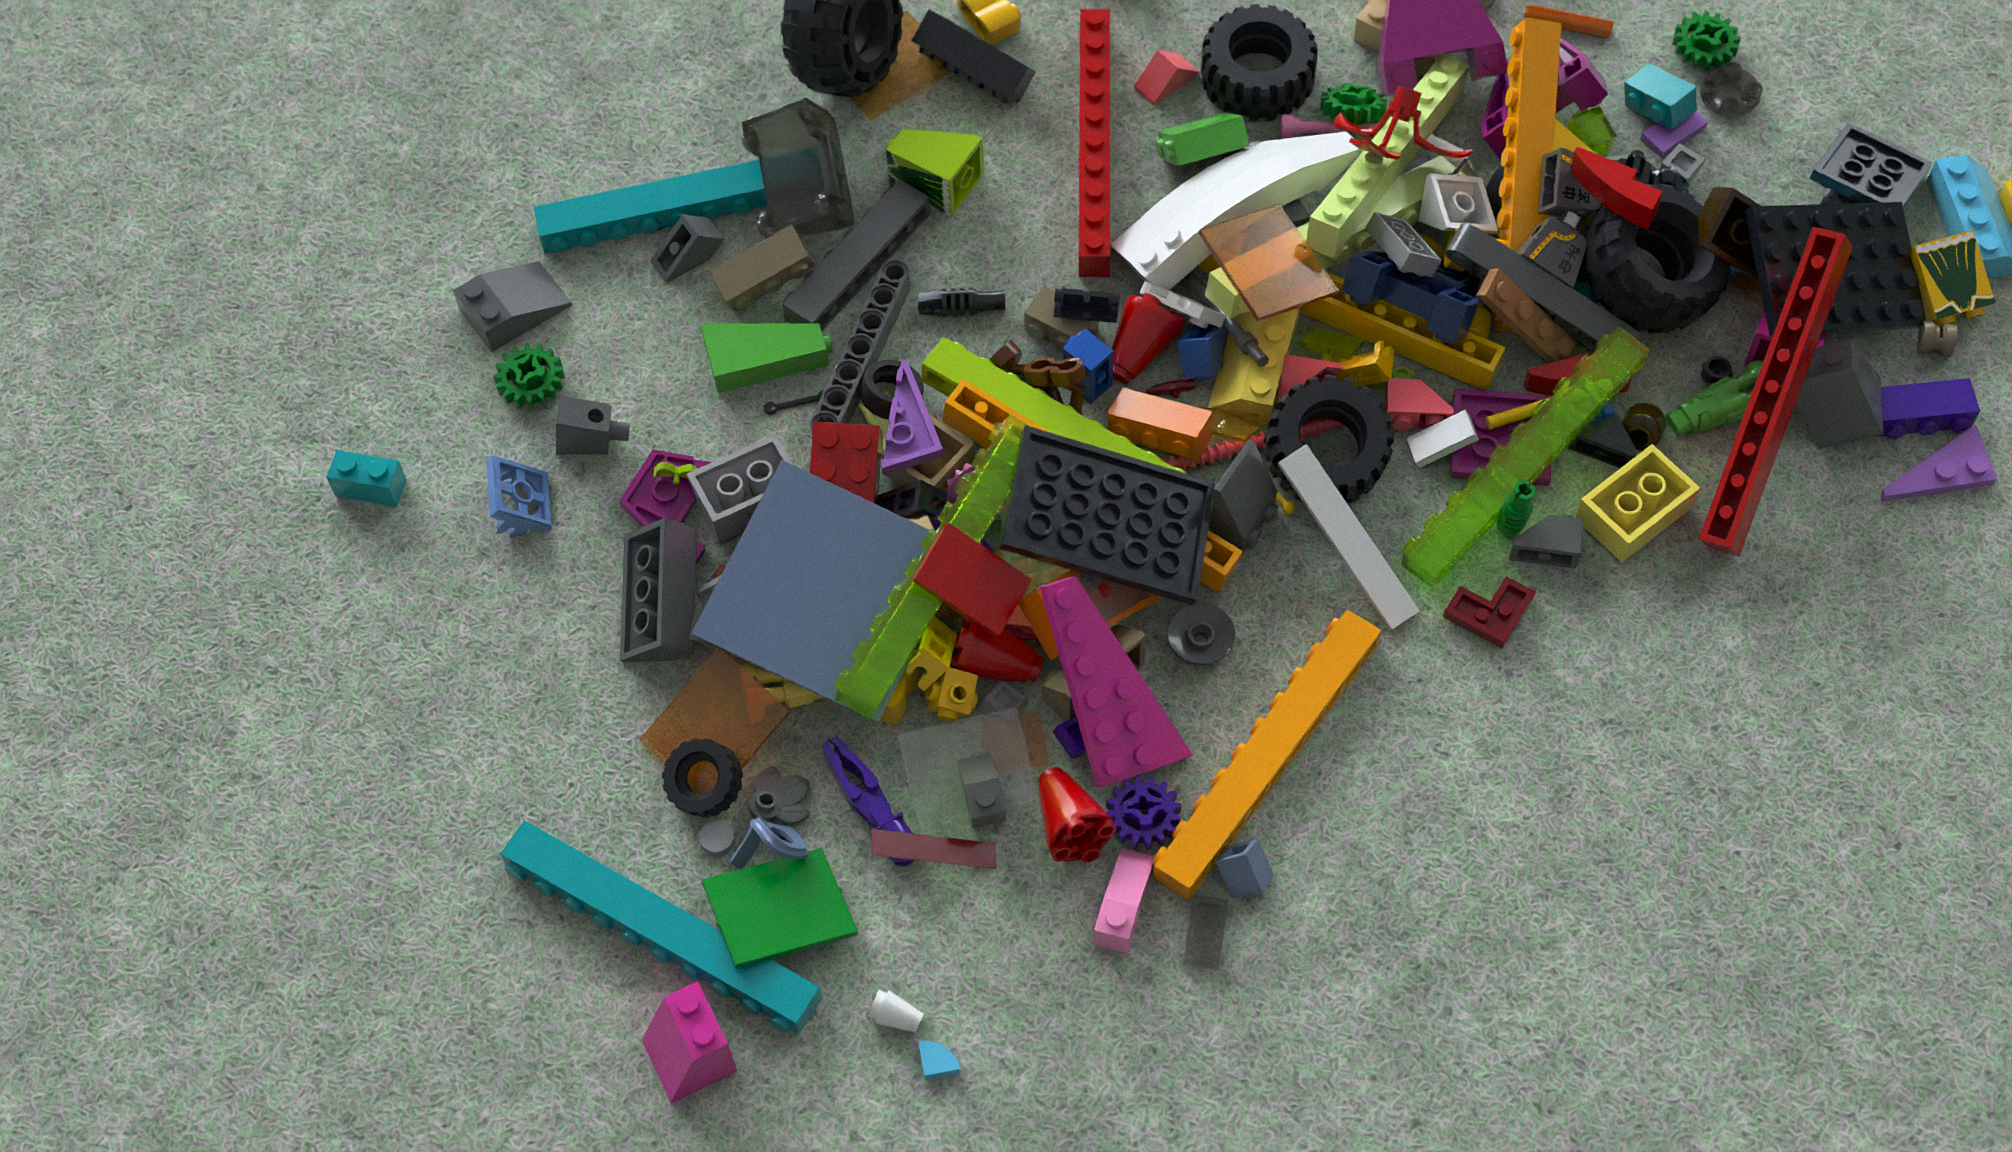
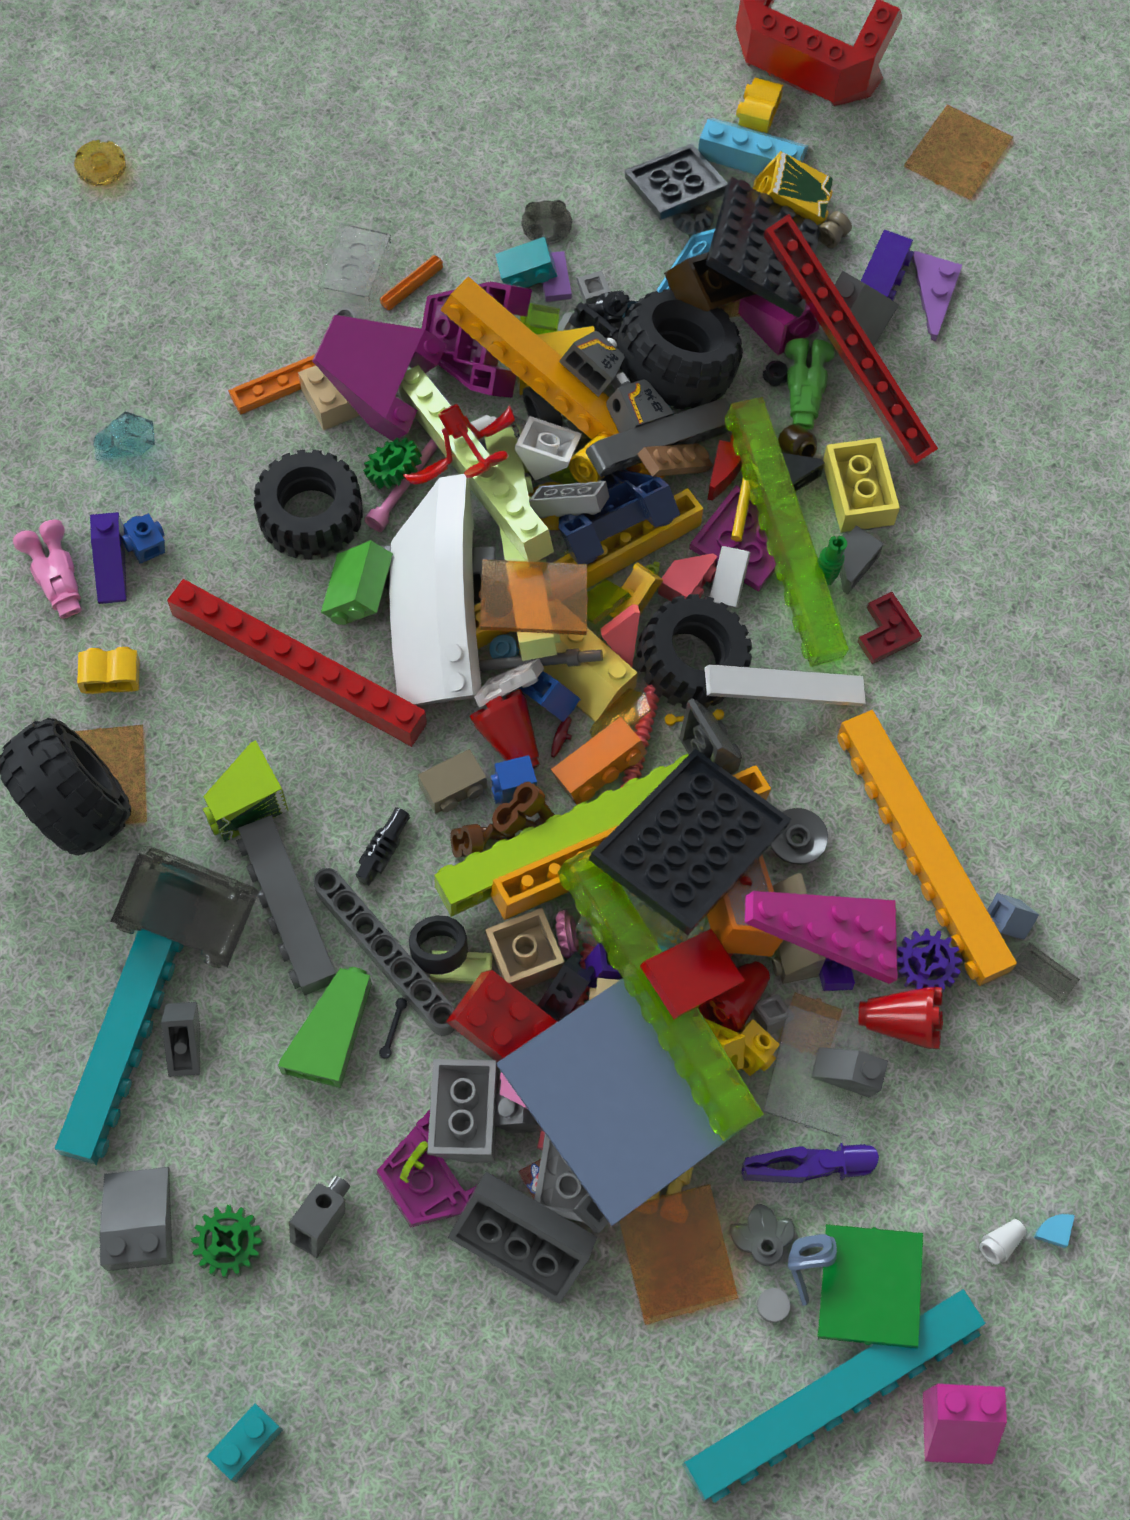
camera: 65 degrees left, 5 degrees up
(537, 488) = (351, 1293): medium blue piece -> none
(677, 770) = (739, 1306): black tyre -> none
(763, 268) = (256, 984): dark tan brick -> none
(911, 431) = (503, 947): medium lavender wing -> none
(933, 849) = (882, 1136): dark red sticker -> none
(973, 56) = (151, 706): black wedge -> none
(1086, 305) = (462, 752): black hinge -> none
(1123, 901) = (993, 1016): bright pink slope -> none
(1164, 76) = (267, 579): coral slope -> none
(1616, 187) = (635, 329): red slope -> none
(1706, 40) = (494, 209): green gear -> none

